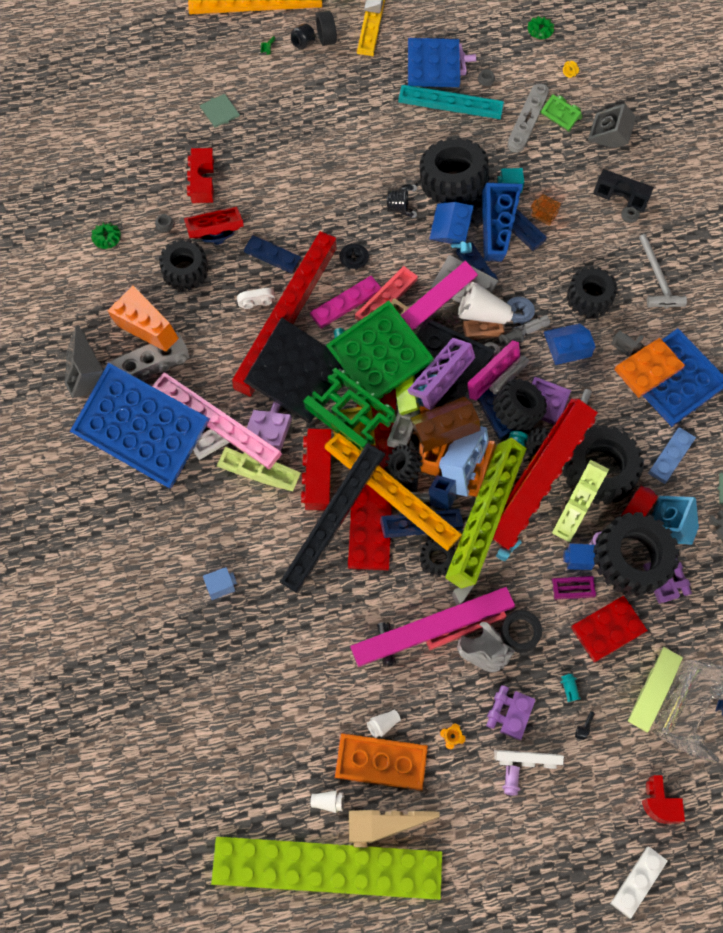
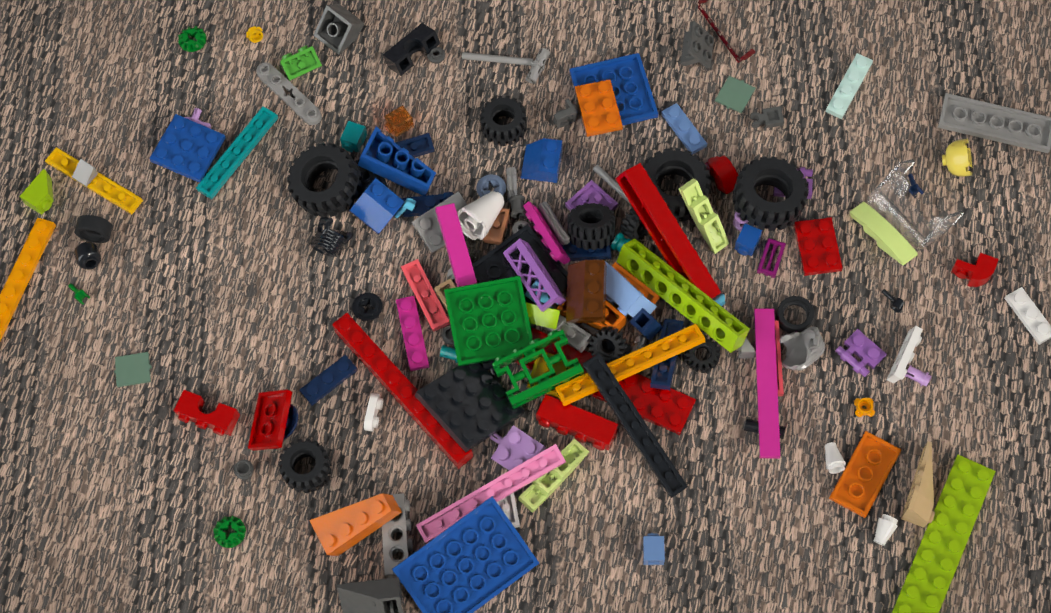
camera: 60 degrees left, 0 degrees up
(486, 77) = (225, 110): dark grey plate -> none
(570, 687) = (857, 297): teal pin -> none
(679, 516) = (743, 148): dark azure slope -> none

